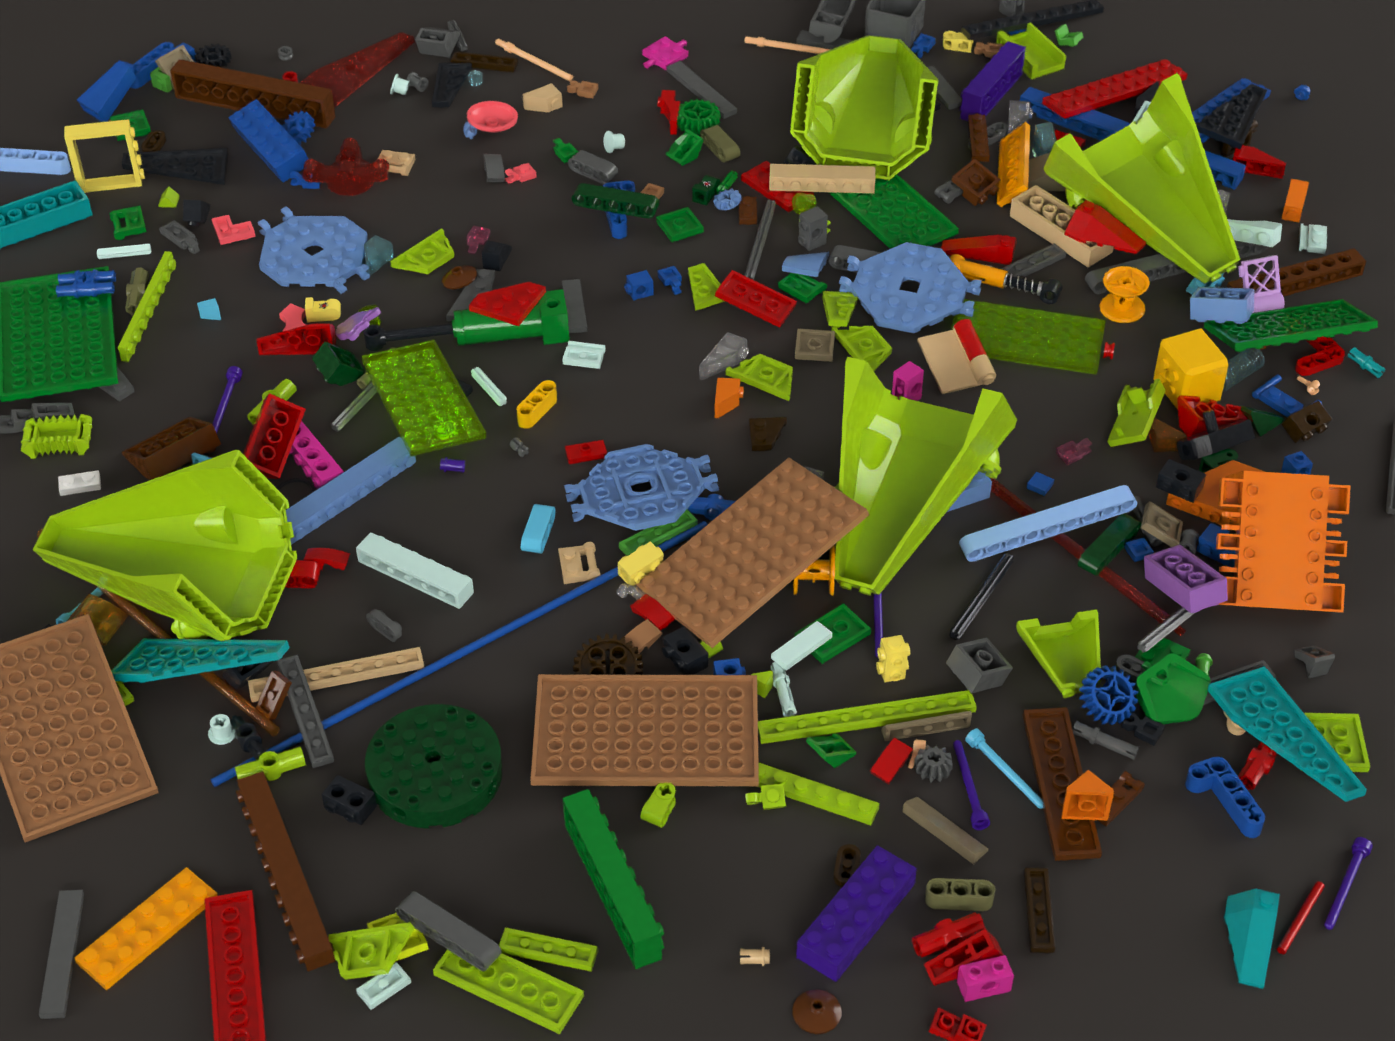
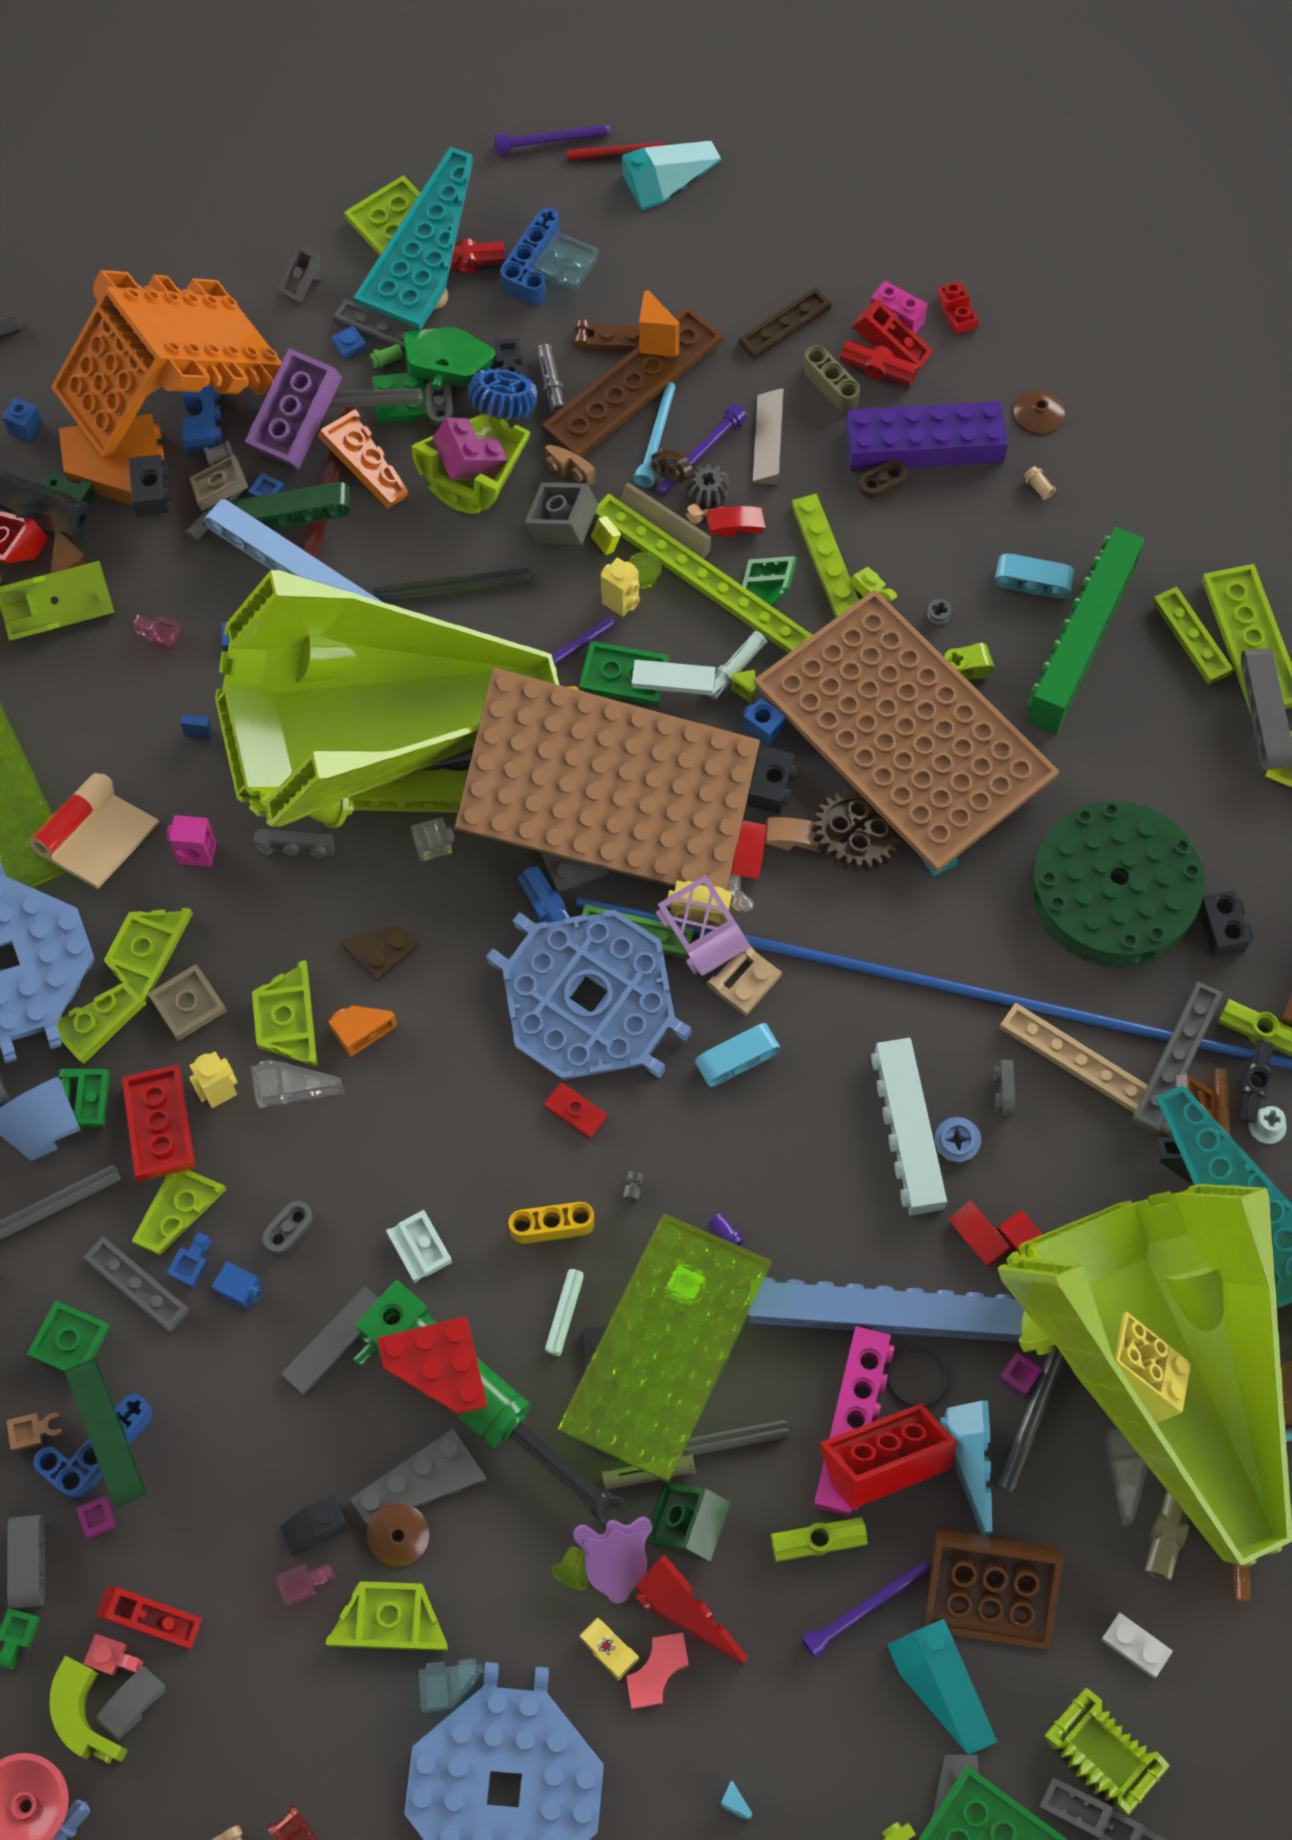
camera: 130 degrees left, 20 degrees up
(165, 405) = (940, 1679): none -> teal wedge
(170, 535) = (1152, 1369): none -> light yellow slope
(384, 581) = (965, 1130): none -> medium blue gear
(509, 148) = (68, 1715): none -> lime arch
(525, 185) = (148, 1617): none -> red slope
(611, 550) = (714, 947): none -> lavender piece
(648, 317) = (285, 1227): none -> dark grey plate
(683, 259) = (136, 1284): none -> dark grey tile
(684, 892) = (1034, 576): none -> medium azure beam
(714, 817) = (933, 607): none -> dark grey bush
(755, 322) = (213, 1079): none -> light yellow brick
(898, 686) = (648, 567): none -> clear neon green piece
(944, 685) = (605, 535): none -> neon yellow plate
(963, 743) = (671, 465): none -> dark brown plate
(1014, 706) = (567, 462): none -> medium nougat slope
(1069, 639) = (466, 453): none -> magenta slope
(1125, 601) = (355, 448): none -> orange wing
(1208, 814) = (567, 261): none -> clear light blue plate
(1233, 657) = (349, 342): none -> blue plate

